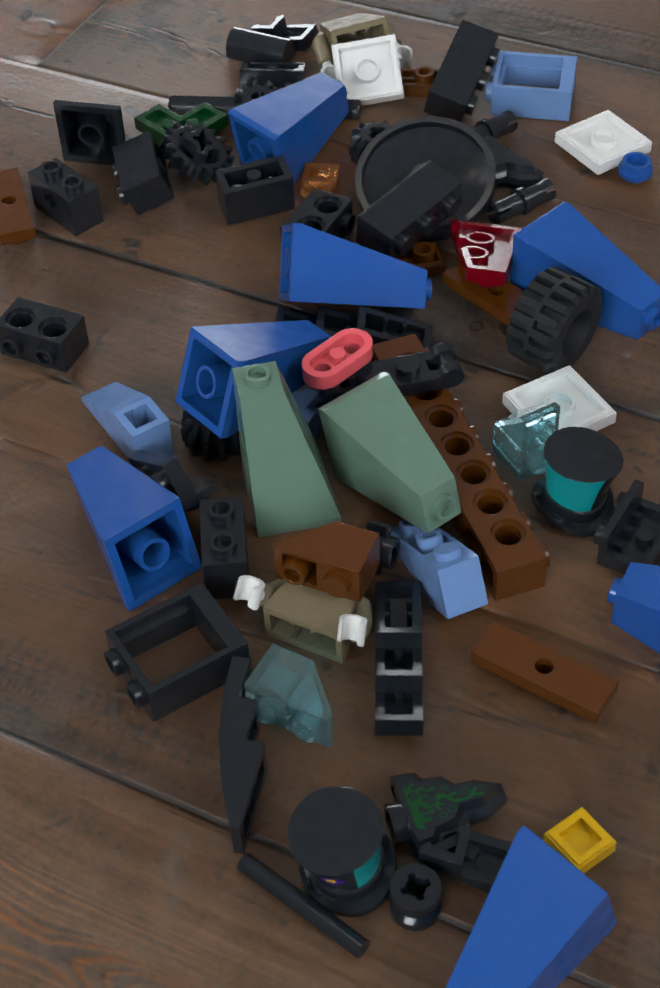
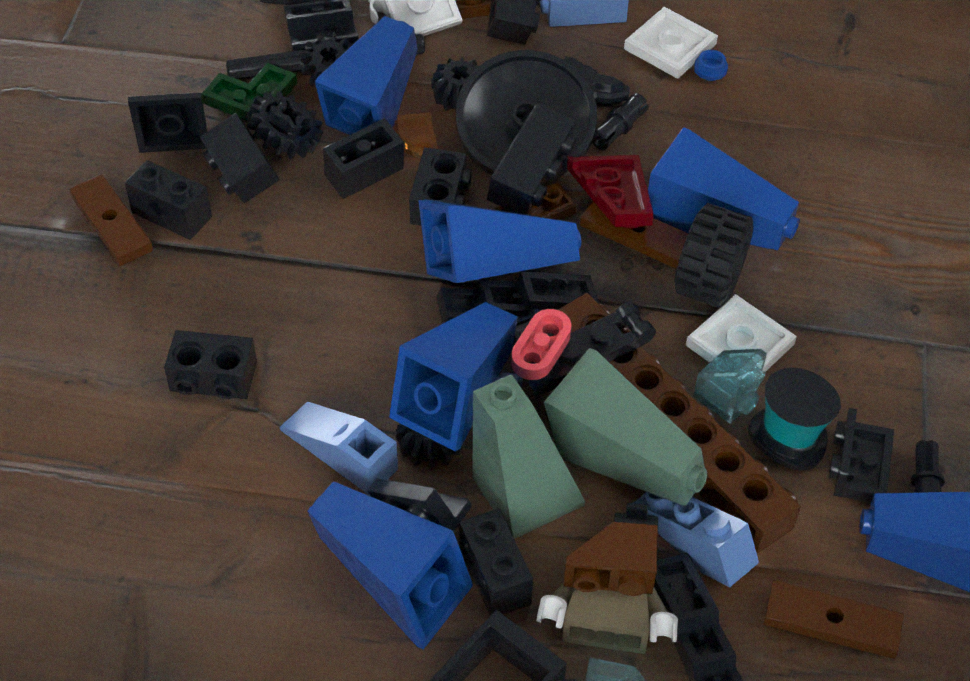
camera: 20 degrees left, 5 degrees up
(497, 125) = (564, 41): black pin -> none

